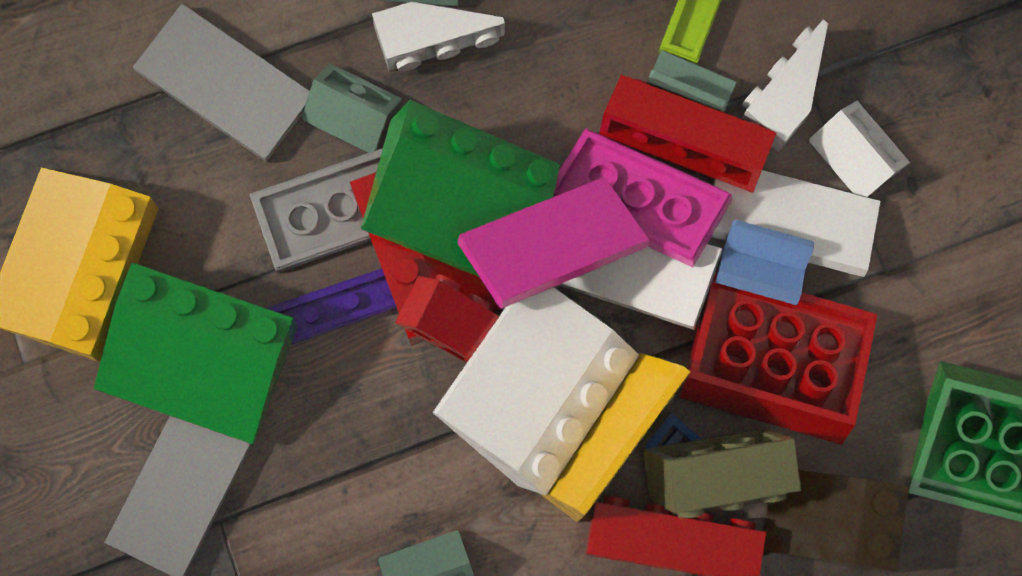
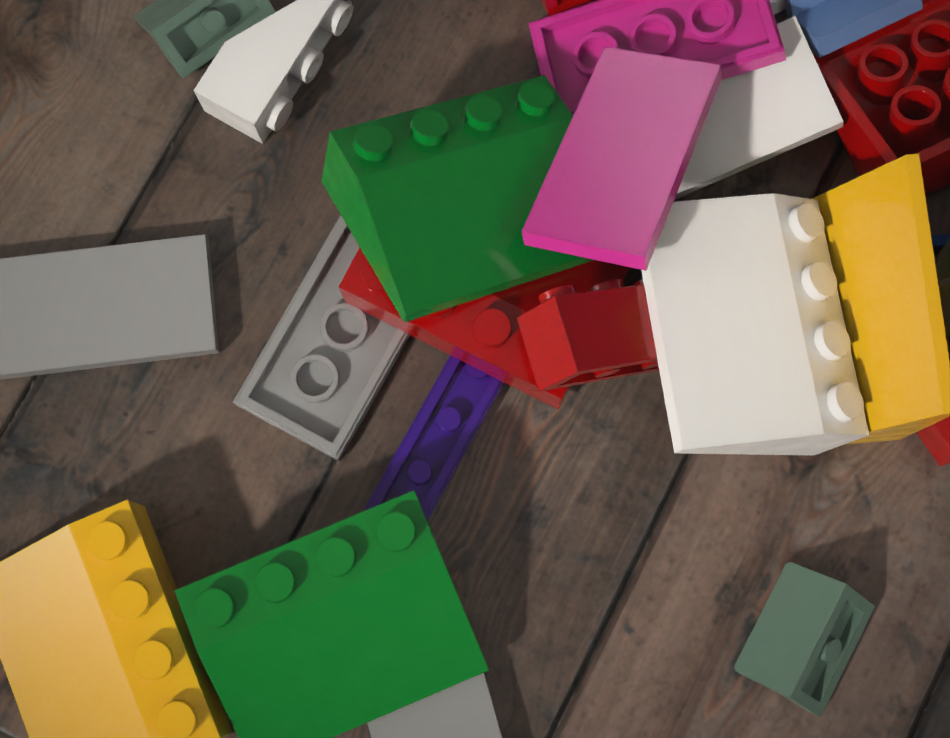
camera: 35 degrees left, 0 degrees up
(349, 107) = (258, 216): sand green panel -> none

